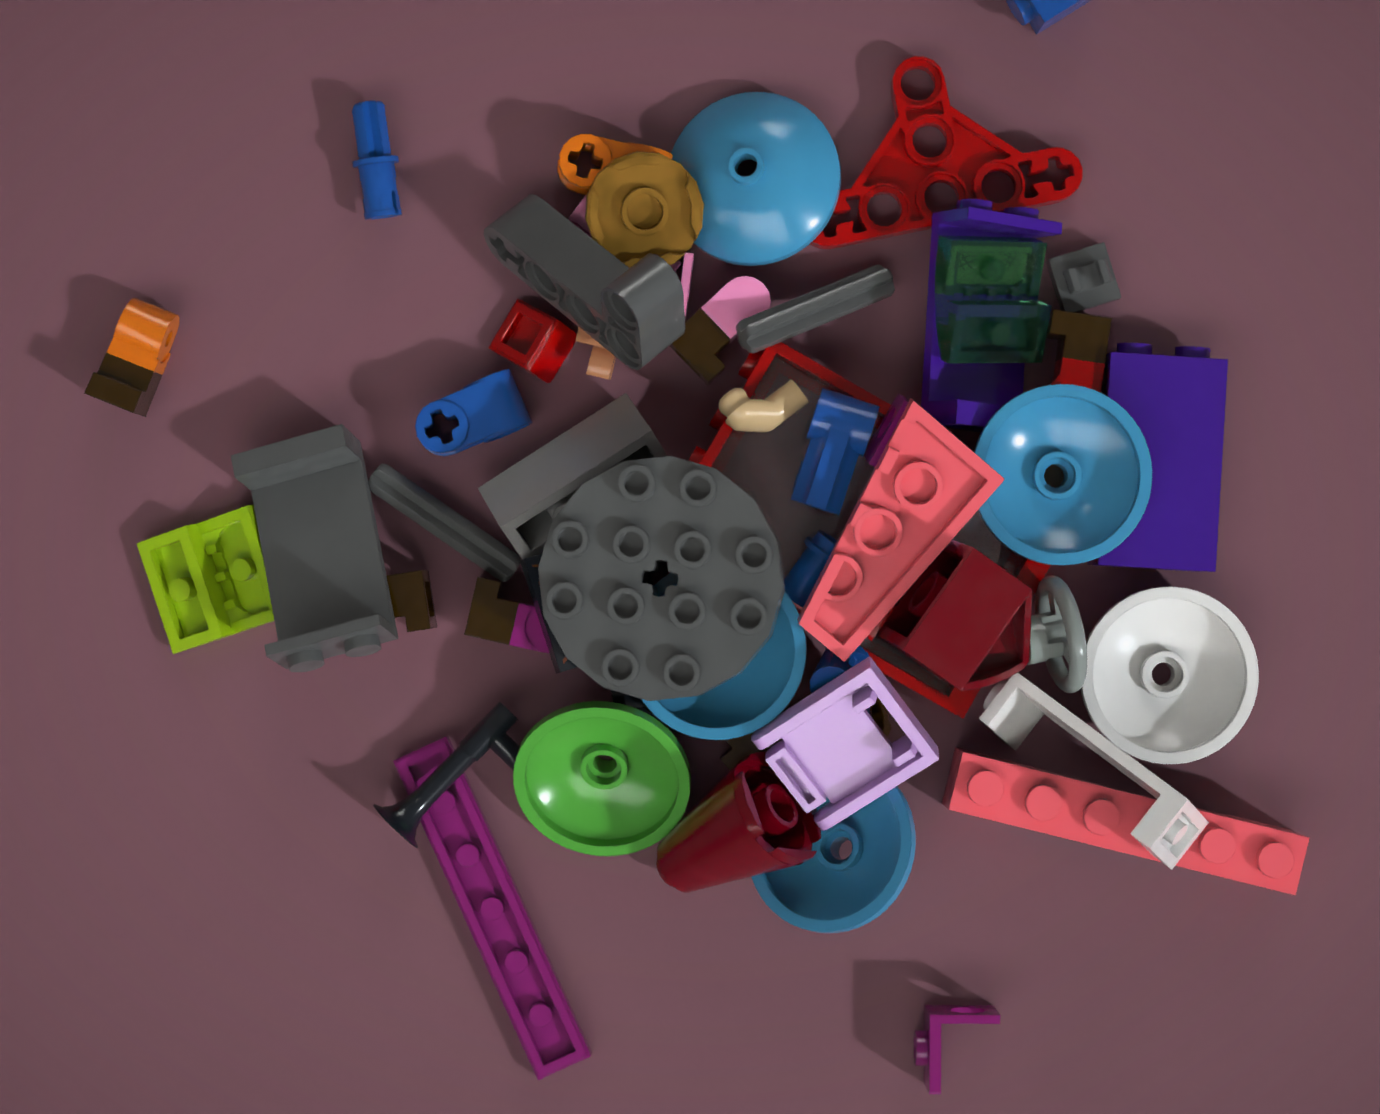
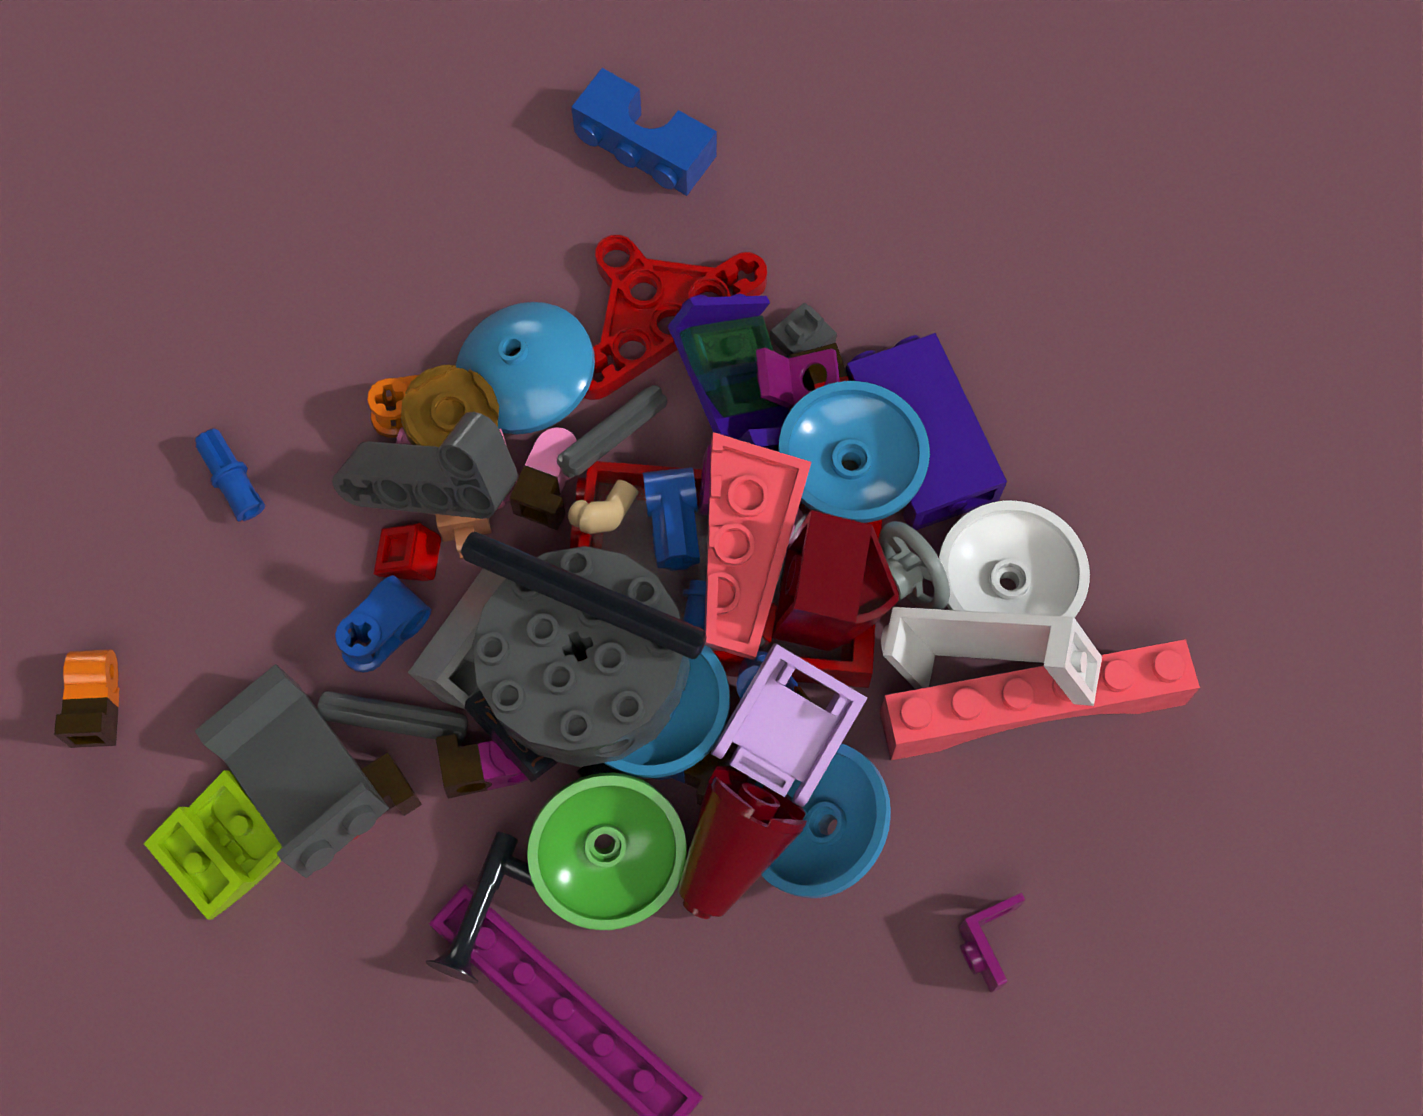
camera: 20 degrees left, 20 degrees down
(687, 532) = (584, 595): none -> black axle
(1028, 342) = (782, 377): none -> magenta bracket

